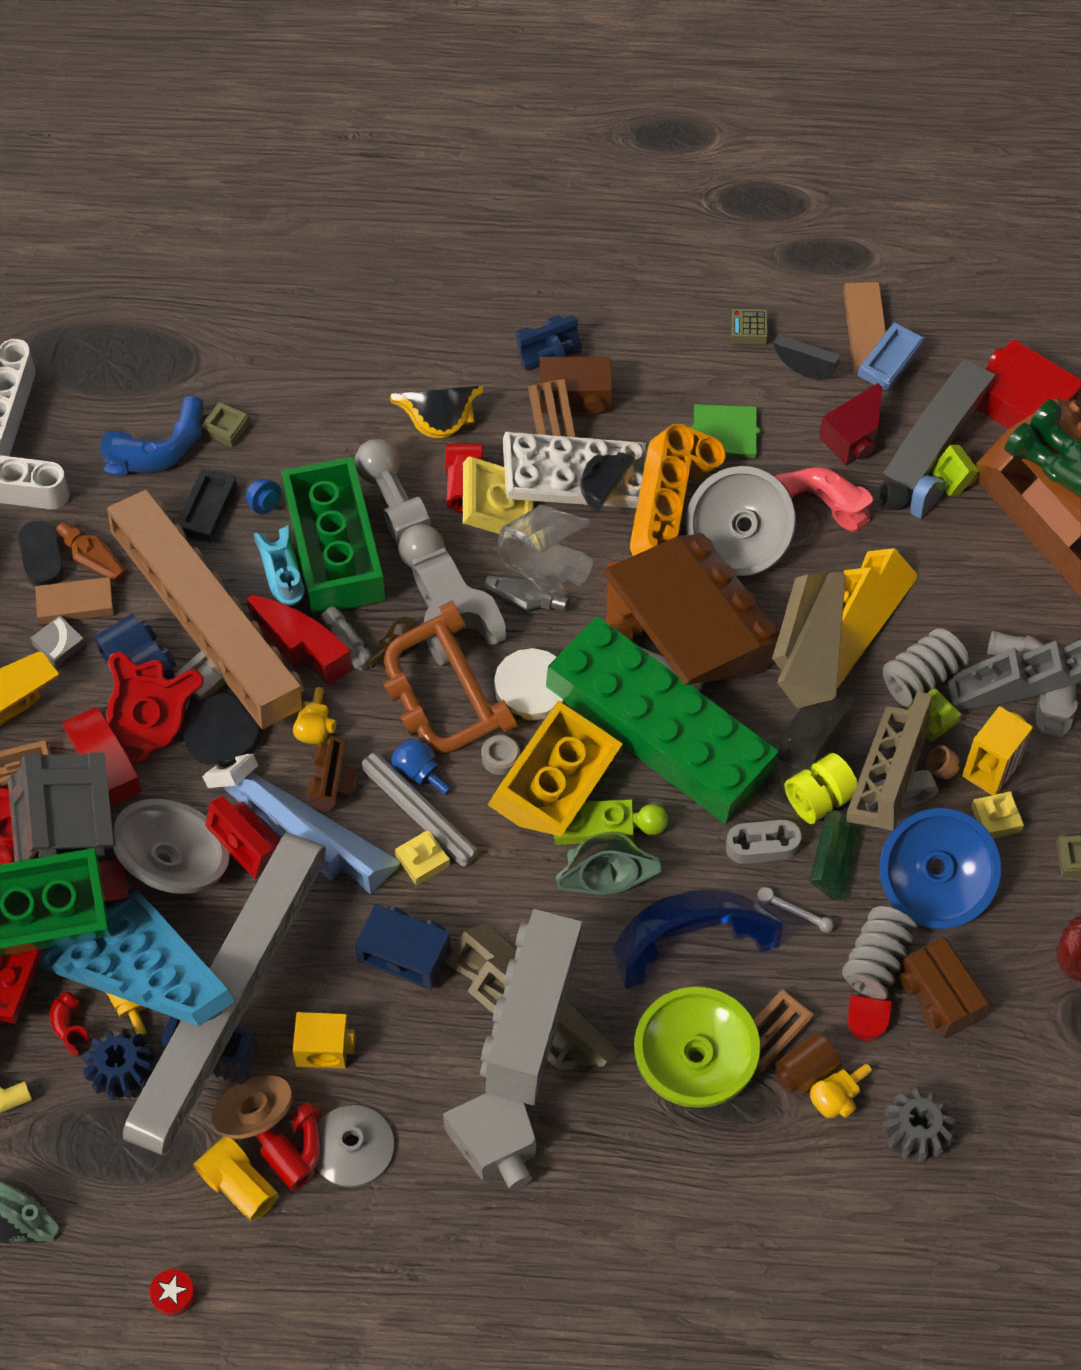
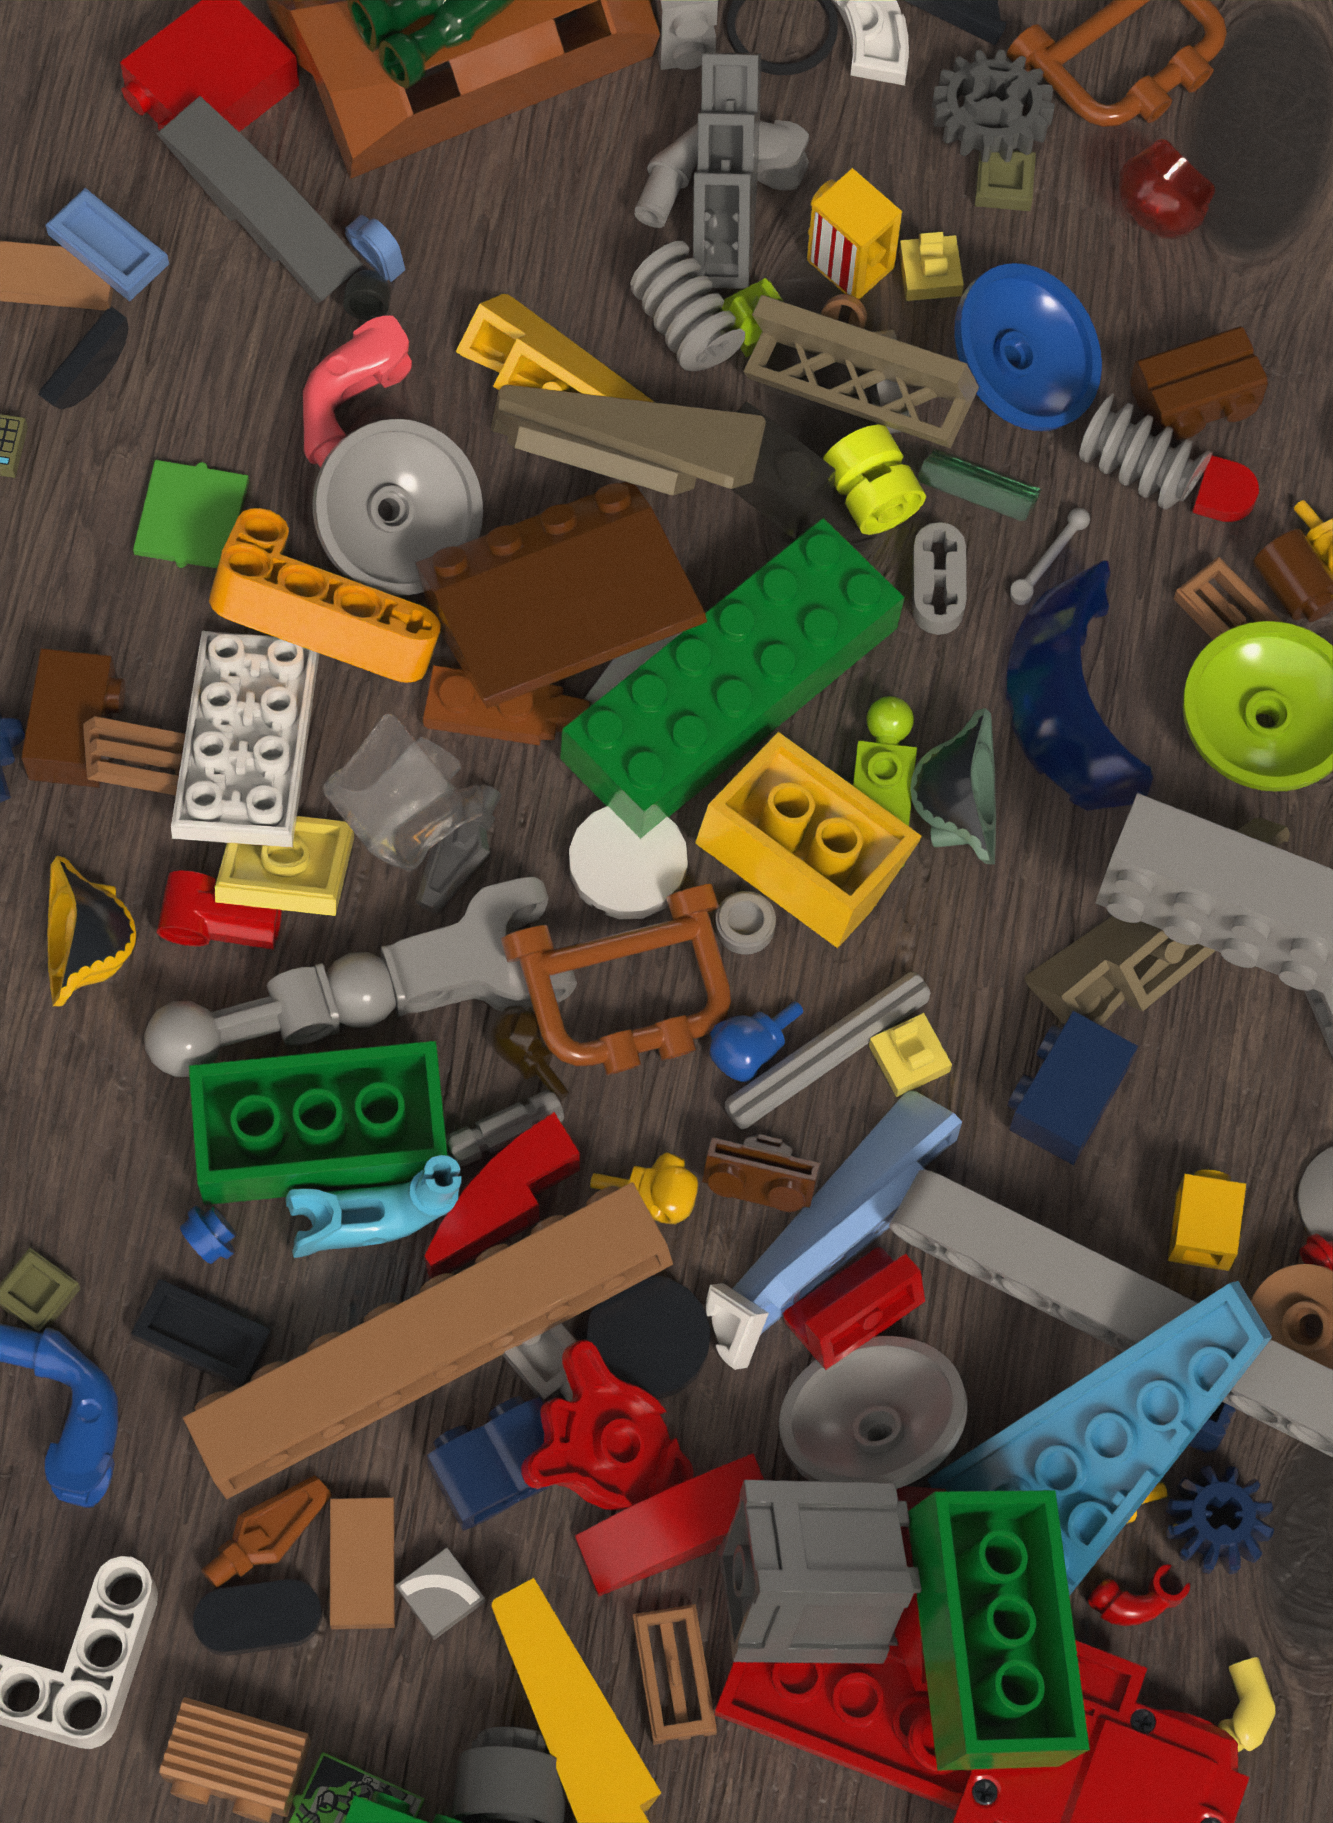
camera: 85 degrees left, 10 degrees up
(602, 477) = (286, 693): black tile -> none
(853, 426) = (231, 319): dark red slope -> none
(956, 470) = (340, 195): lime tile -> none

